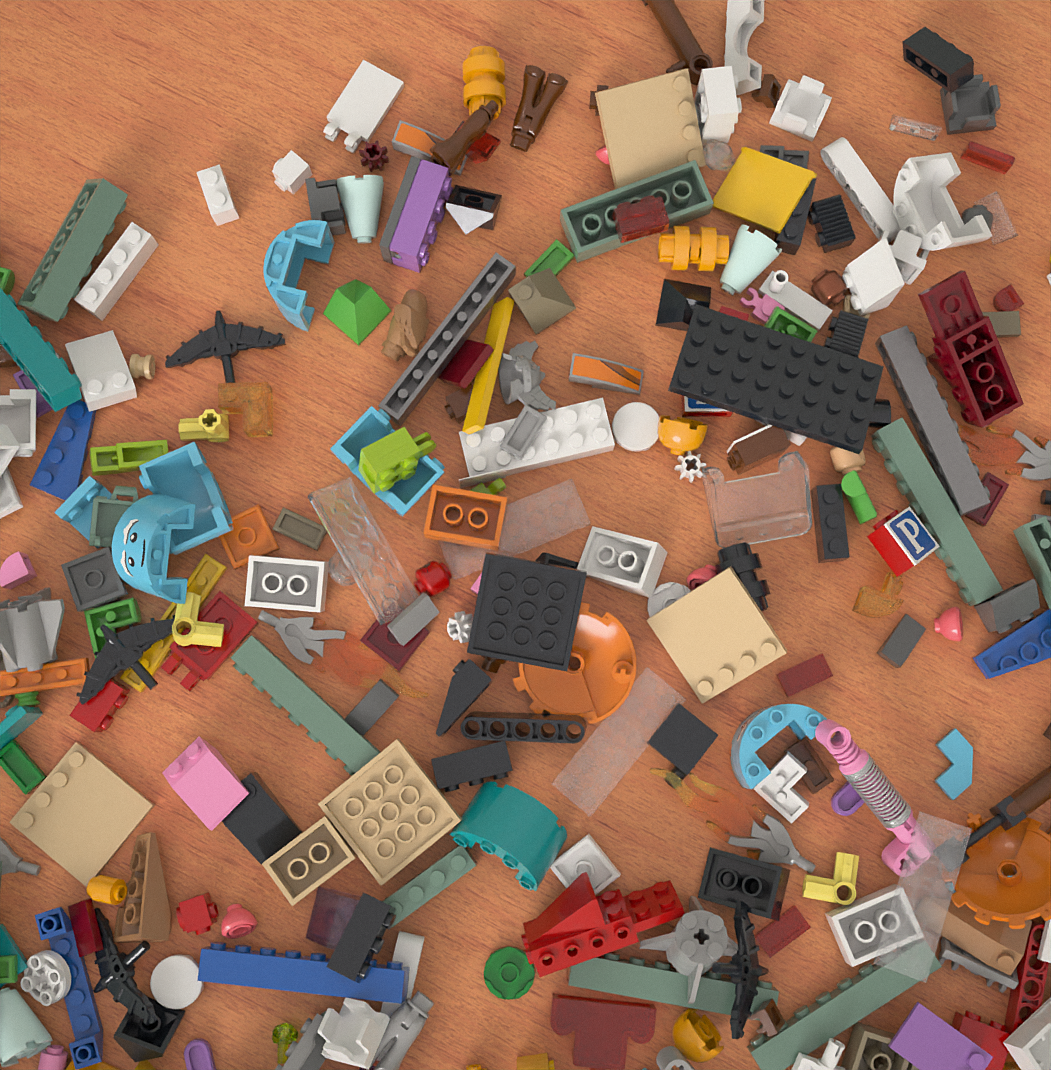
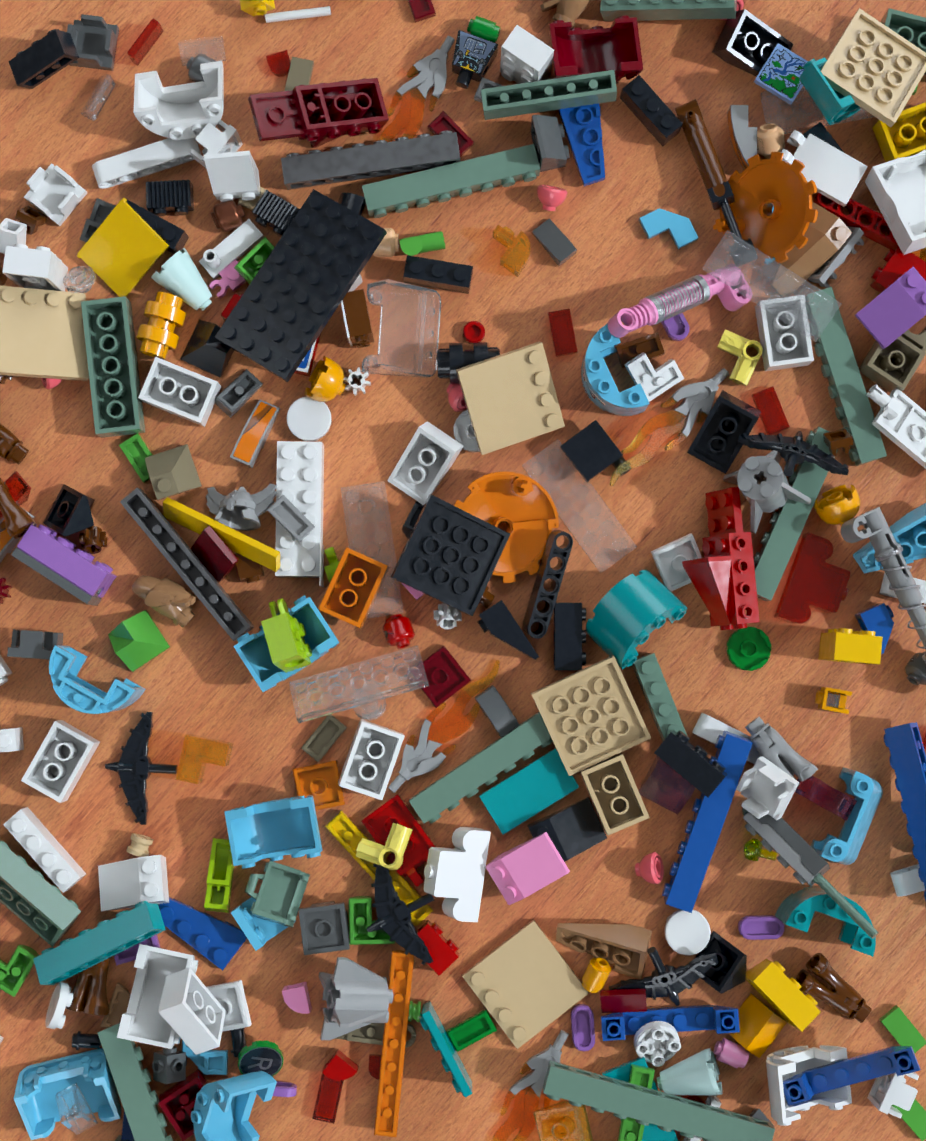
camera: 75 degrees left, 5 degrees up
(48, 889) = (582, 1027): none -> medium lavender tile
(143, 545) = (306, 874): medium azure cylinder -> none
(185, 709) = (459, 873): none -> white brick
(197, 914) = (635, 901): red brick -> none
(208, 427) = (212, 795): light yellow piece -> none
(211, 263) = (60, 761): none -> white brick
(291, 763) = (528, 791): none -> teal tile
(361, 204) = (42, 612): light aqua cone -> none
(413, 619) = (430, 656): light grey tile -> none
(450, 237) = (93, 540): none -> reddish brown gear
(628, 285) = (180, 391): none -> white brick
(640, 219) = (124, 364): clear red brick -> none
(644, 346) = (238, 393): none -> dark grey slope
(778, 578) = (473, 332): none -> red tile
(902, 540) = (469, 216): piece -> none

